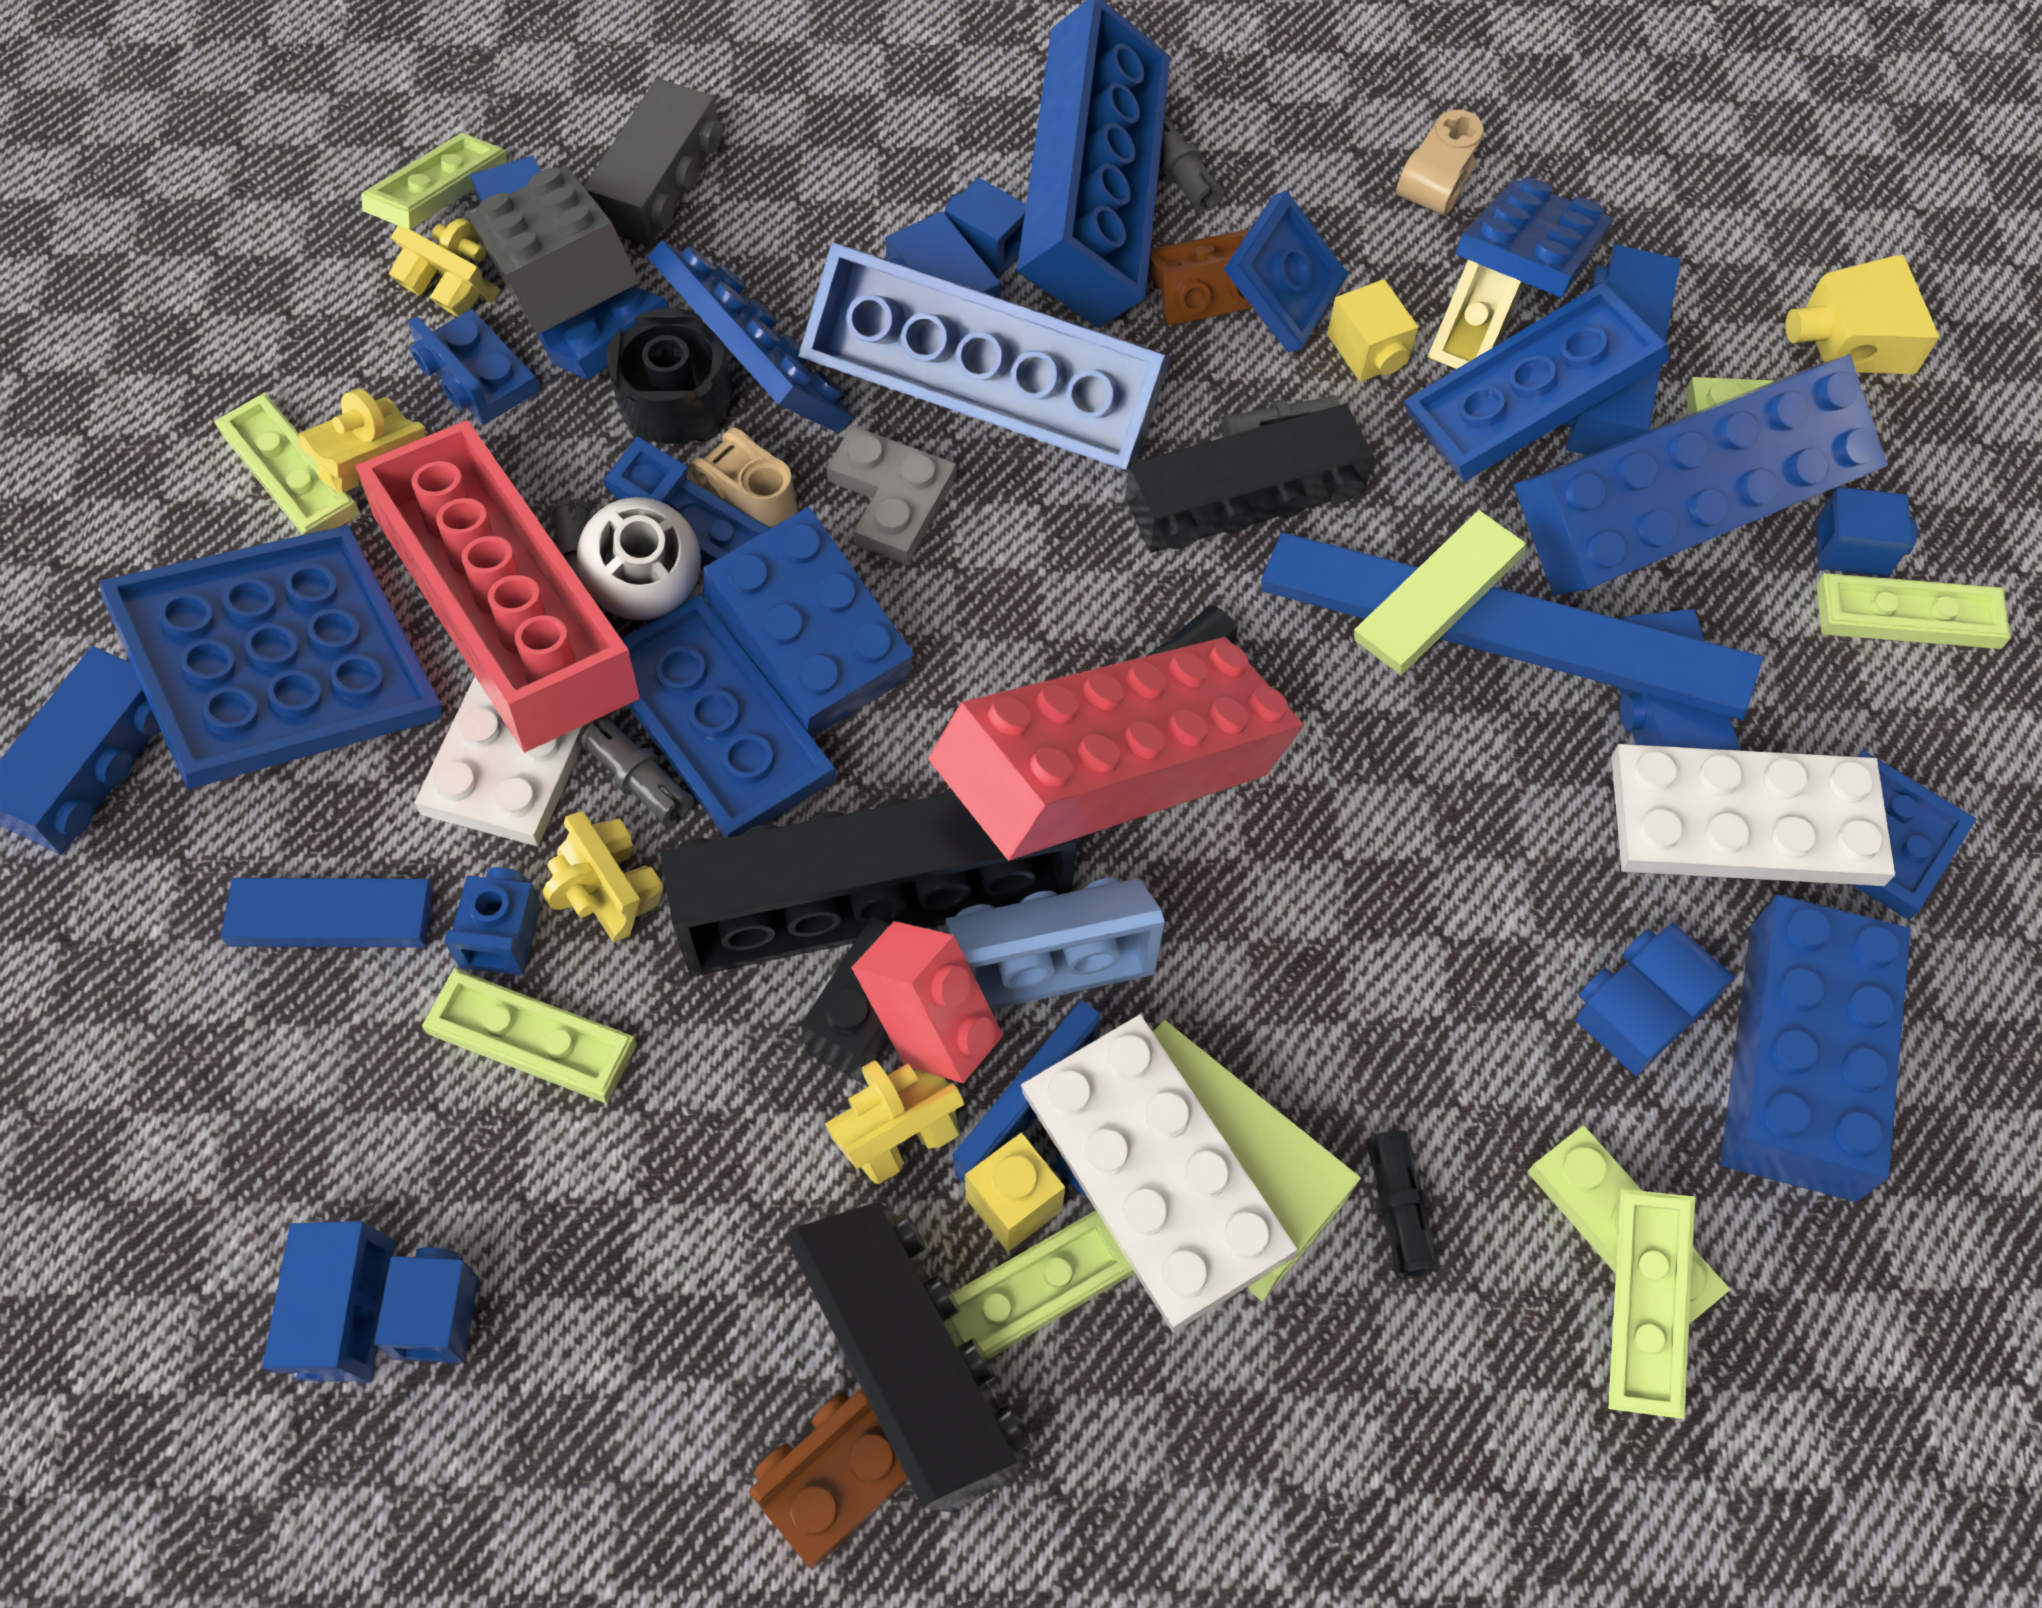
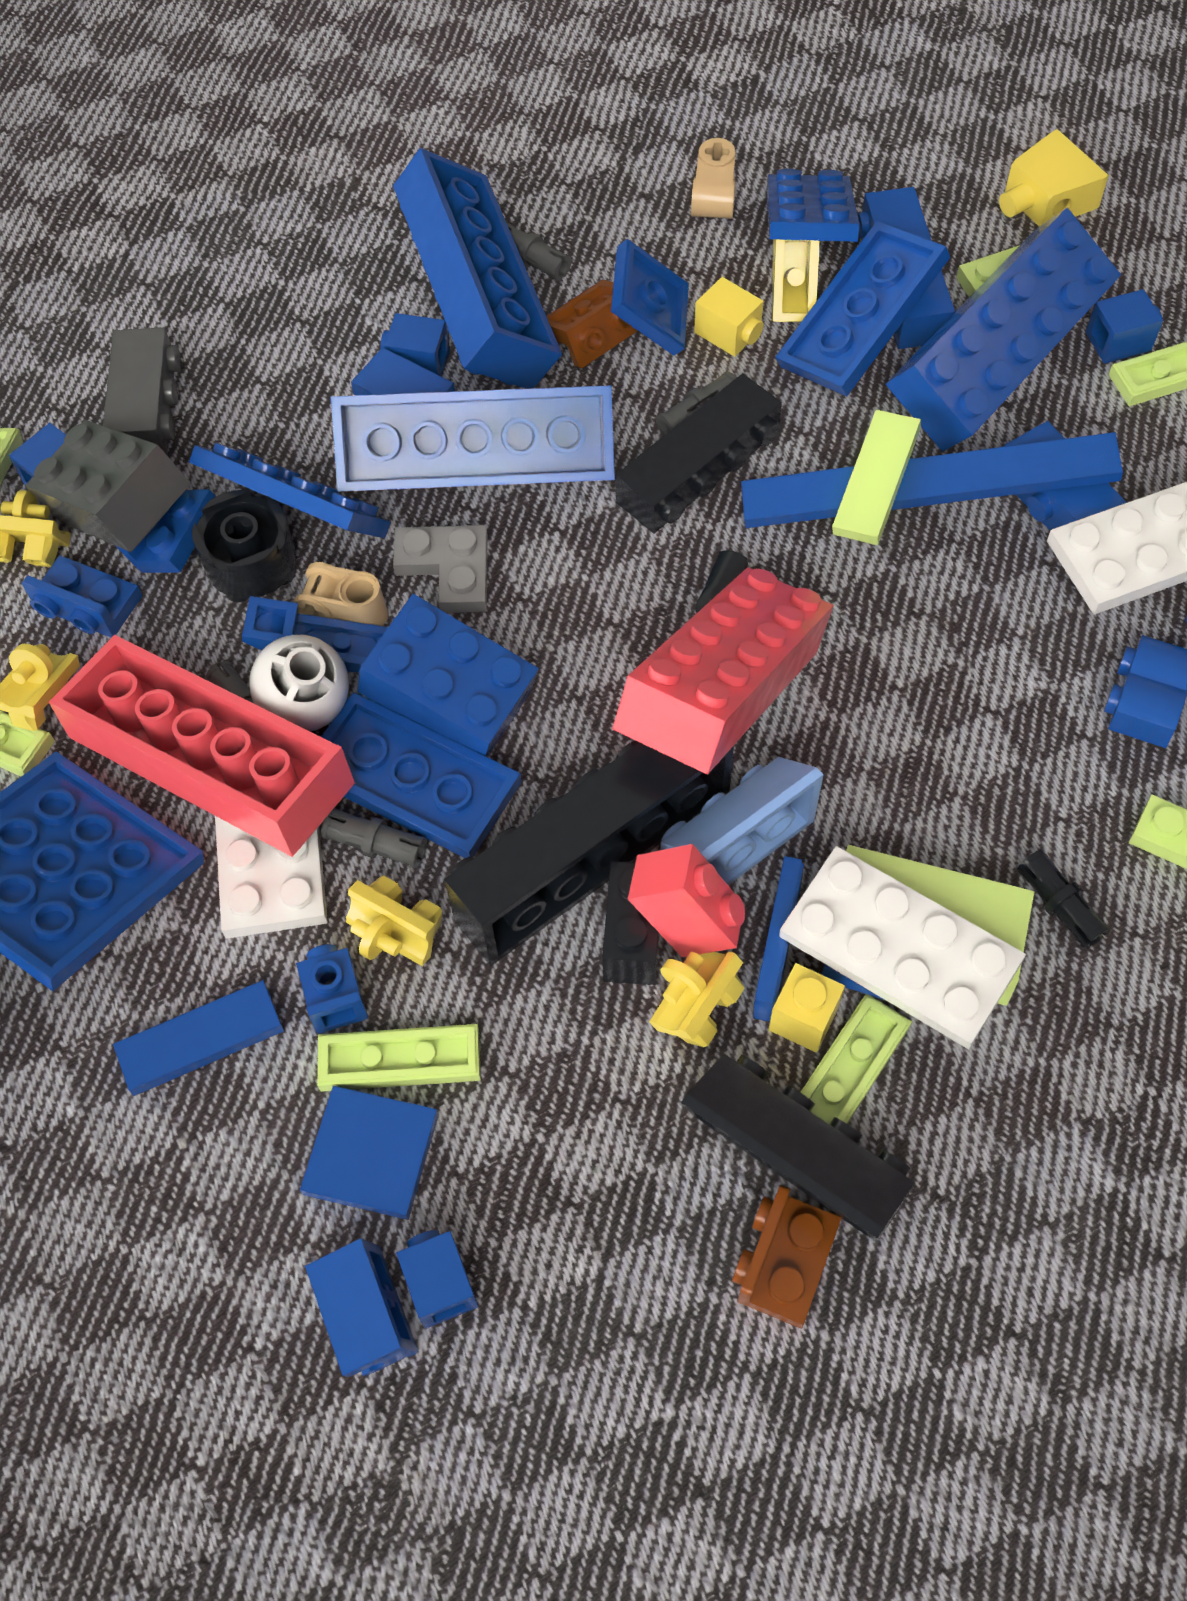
camera: 20 degrees left, 0 degrees up
(439, 1129) = (370, 1152): none -> blue tile

